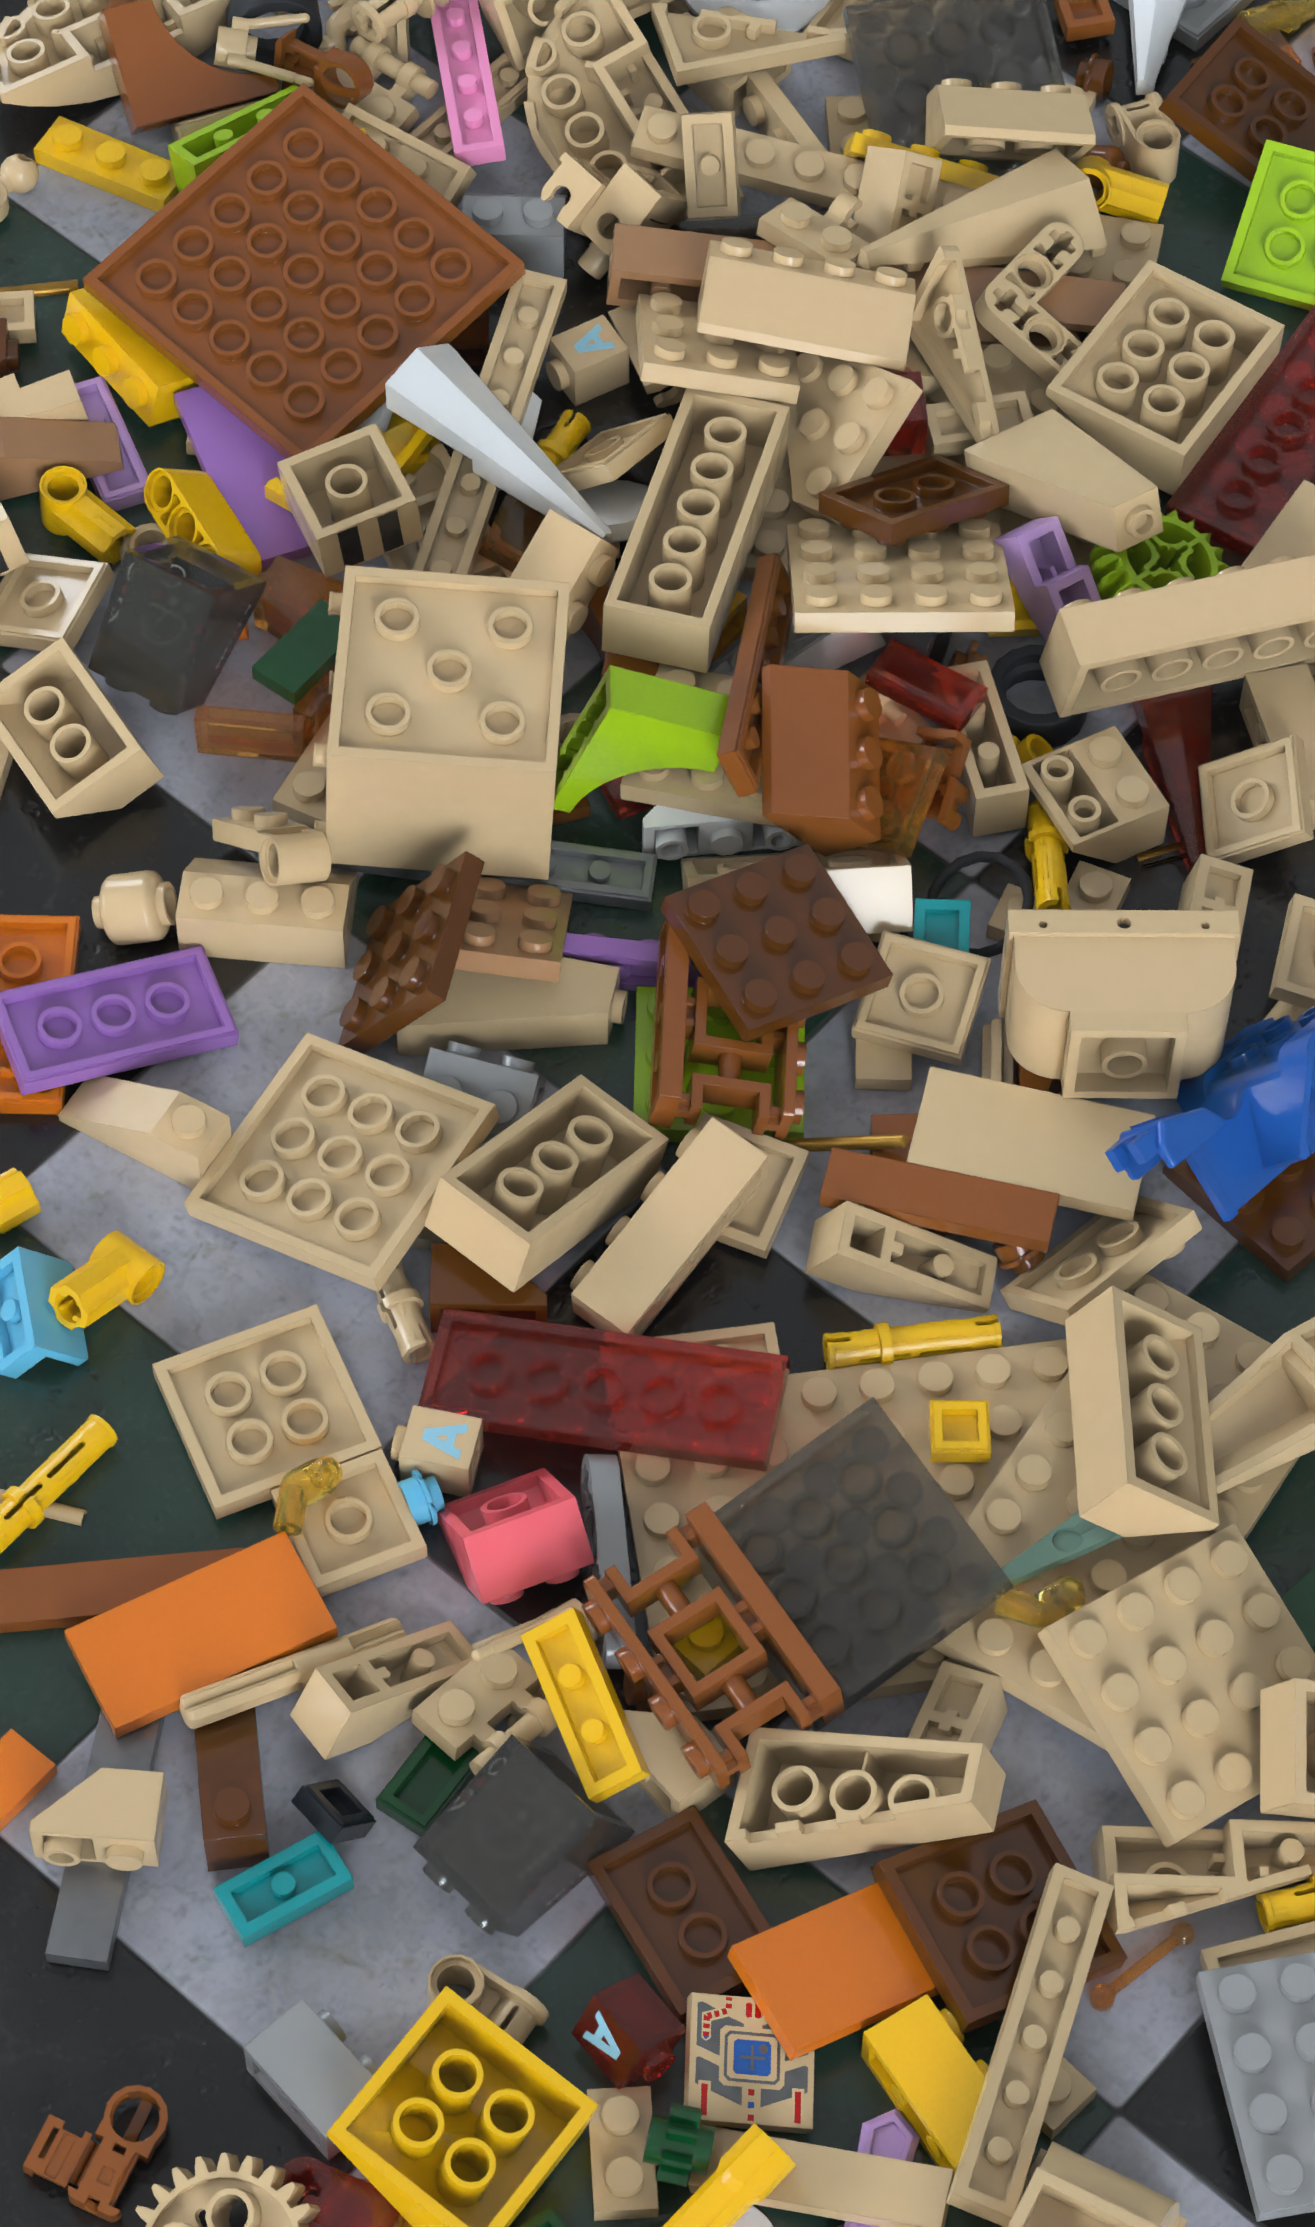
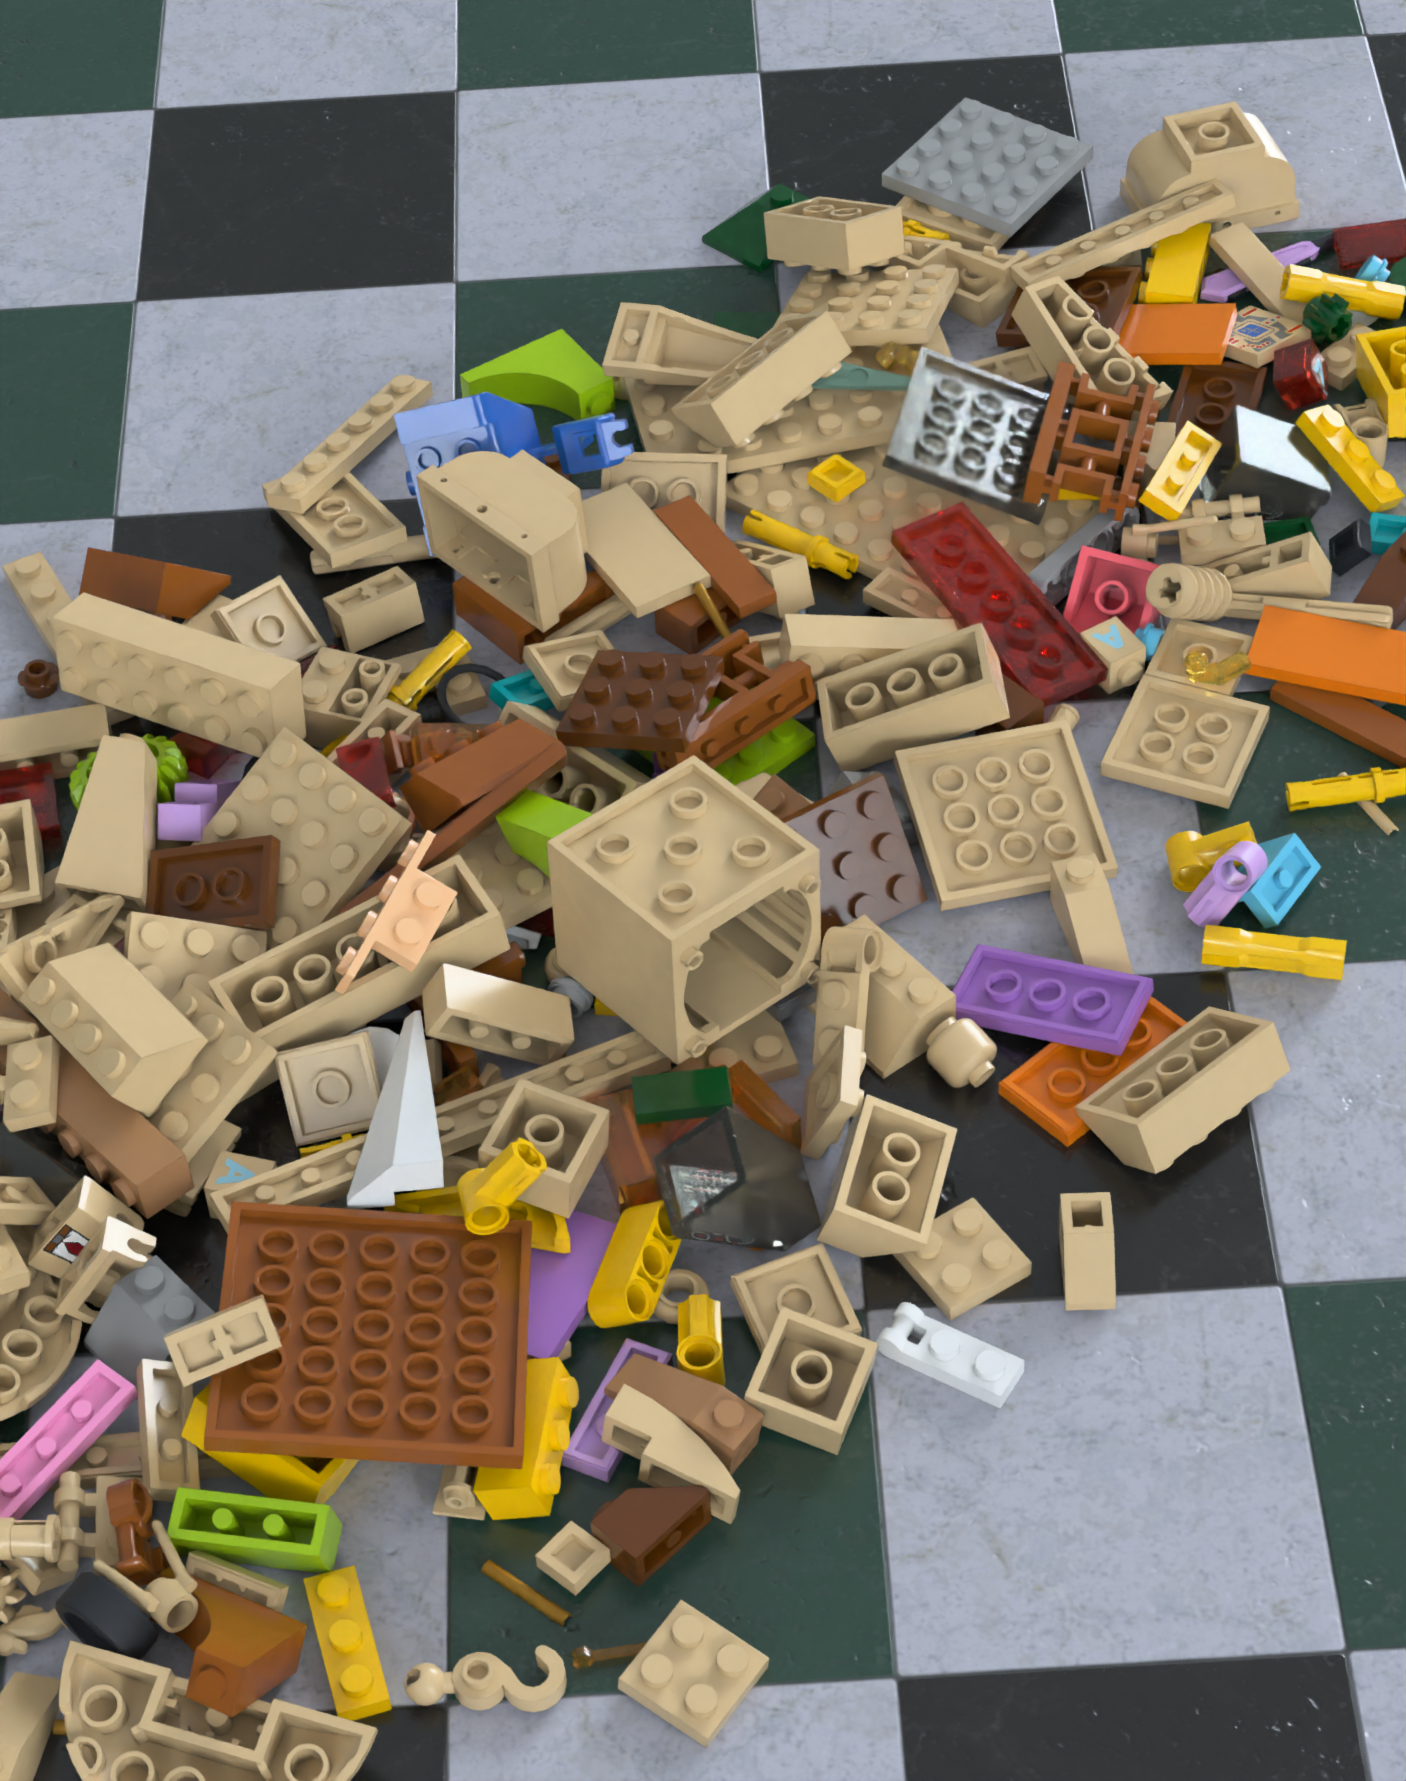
camera: 130 degrees left, 10 degrees down
(43, 1229) = (1225, 885): none -> lavender piece
(187, 762) = (833, 1092): none -> tan plate
(328, 416) = (491, 1190): none -> yellow piece
(376, 141) = (222, 1340): none -> tan hinge
(421, 1559) = (1189, 592): none -> tan piece
(440, 1923) = (1350, 459): none -> yellow plate
(667, 528) = (407, 919): none -> light nougat bracket

